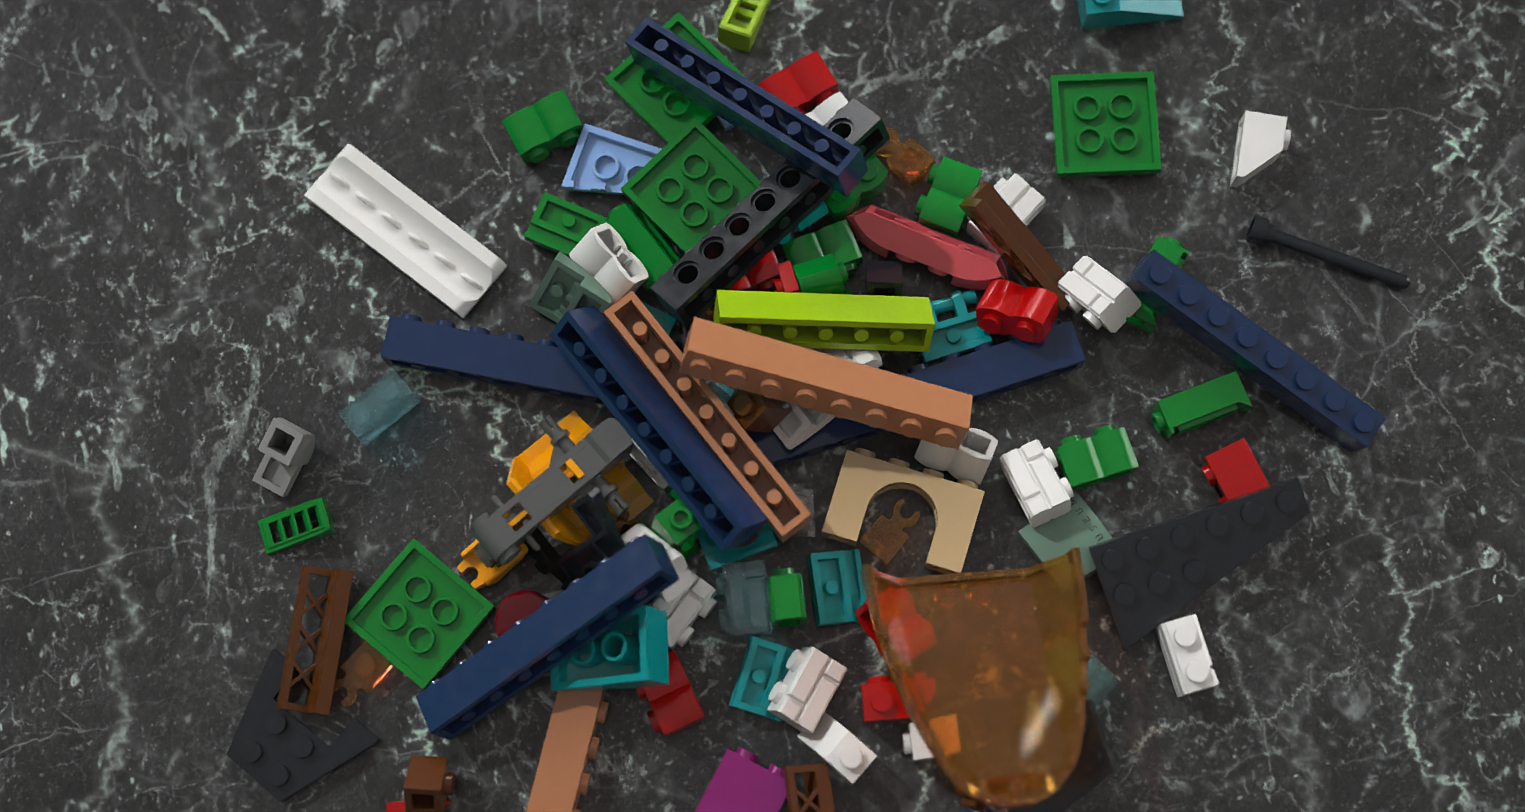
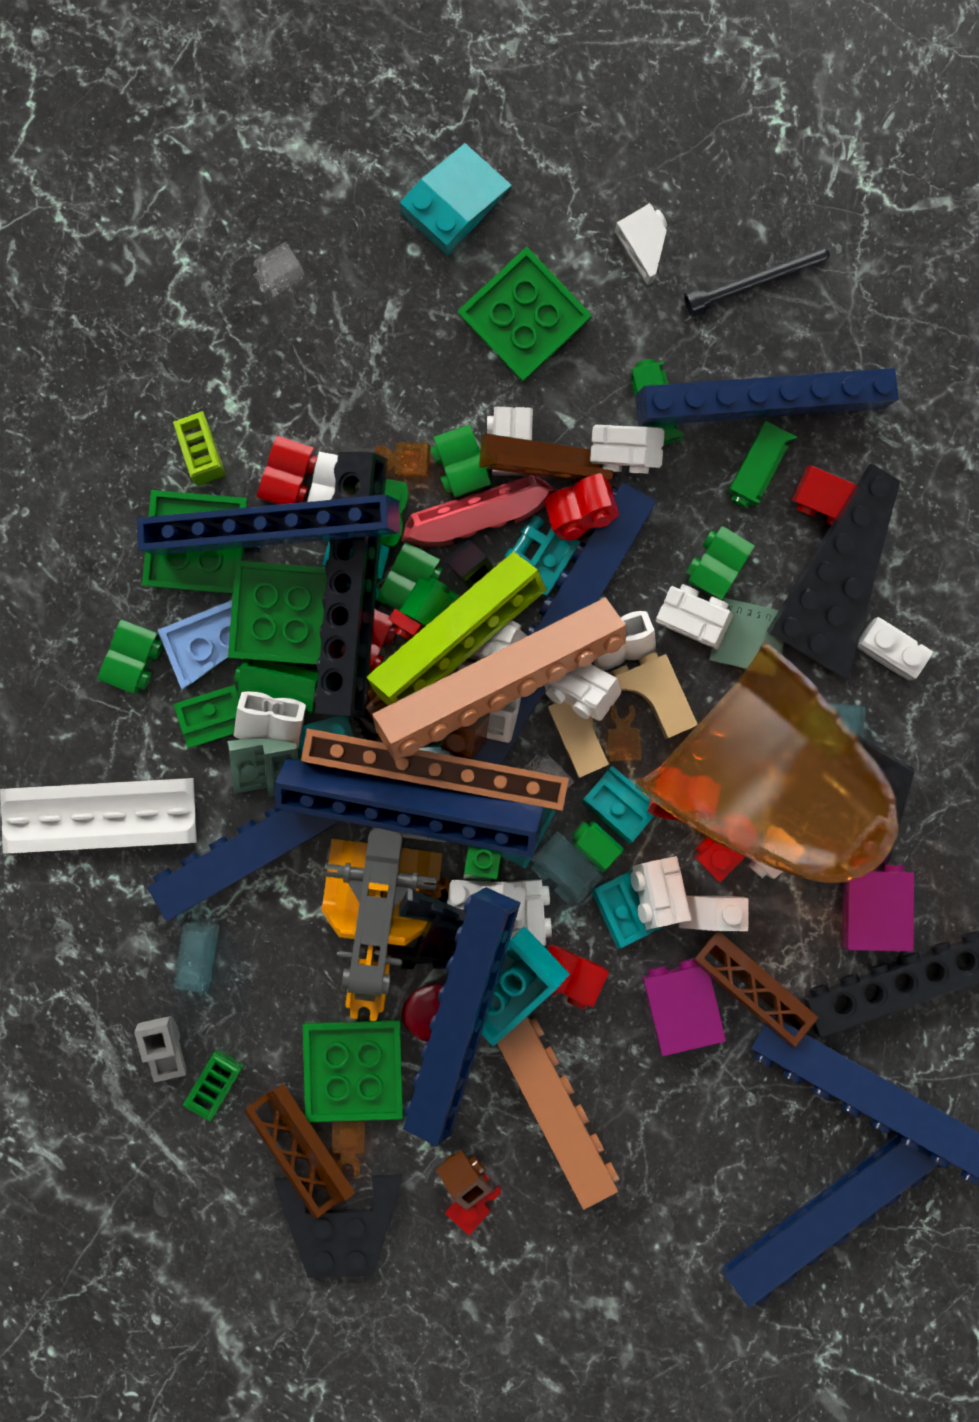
camera: 50 degrees left, 10 degrees up
(890, 459) = (586, 690): none -> white brick

